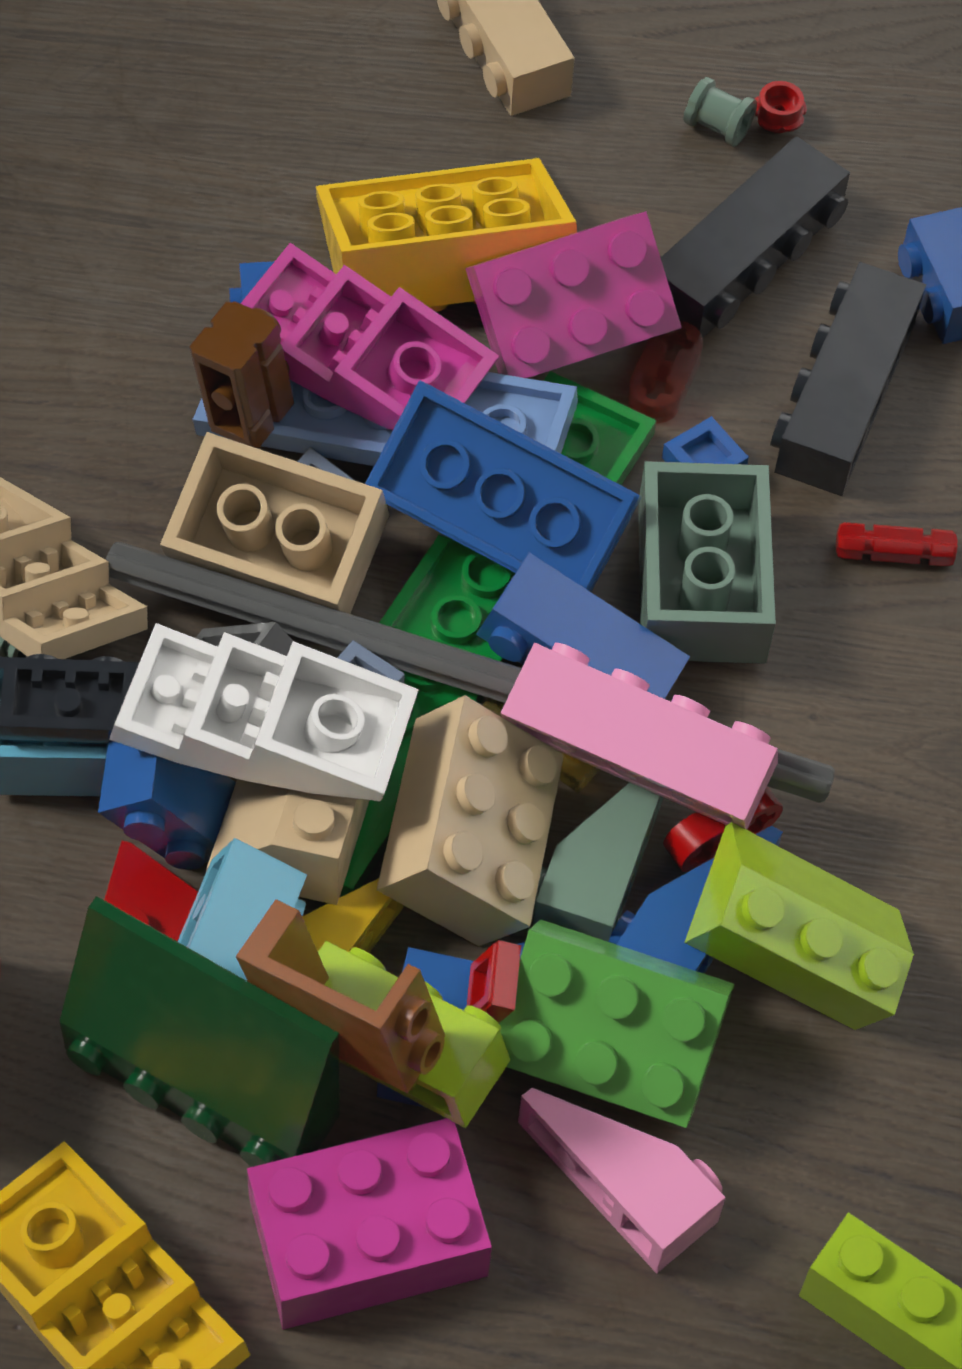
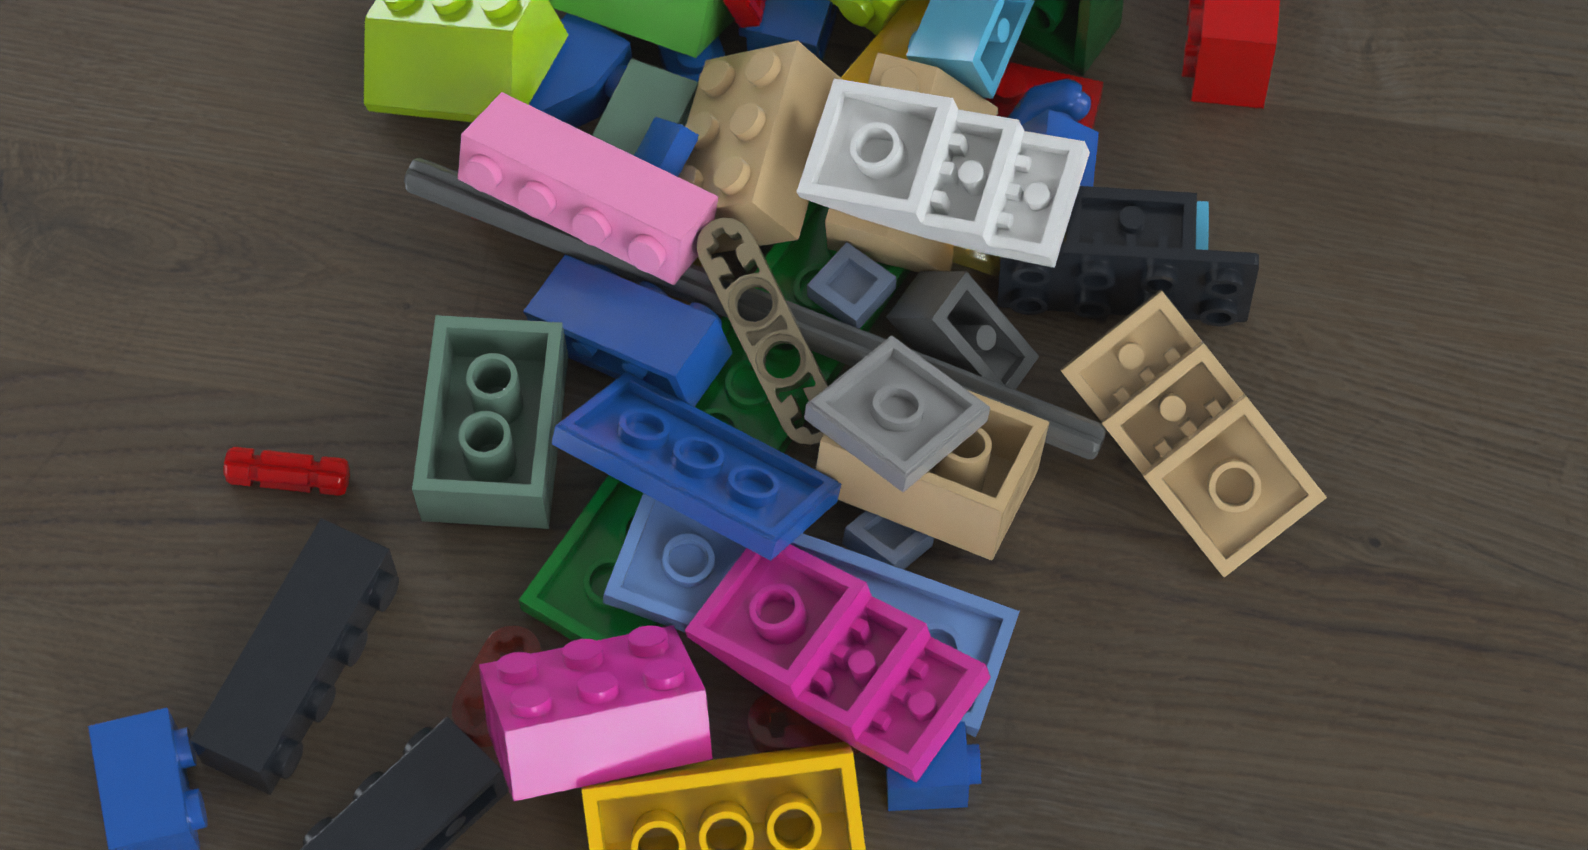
camera: 170 degrees left, 5 degrees up
(154, 895) = (1059, 96): none -> blue arm
(242, 373) = (966, 584): reddish brown brick -> none
(308, 519) = (897, 413): none -> light grey tile
(451, 616) = (763, 335): none -> dark tan beam
(565, 797) = (667, 145): none -> blue tile
(704, 444) = (471, 567): blue plate -> none

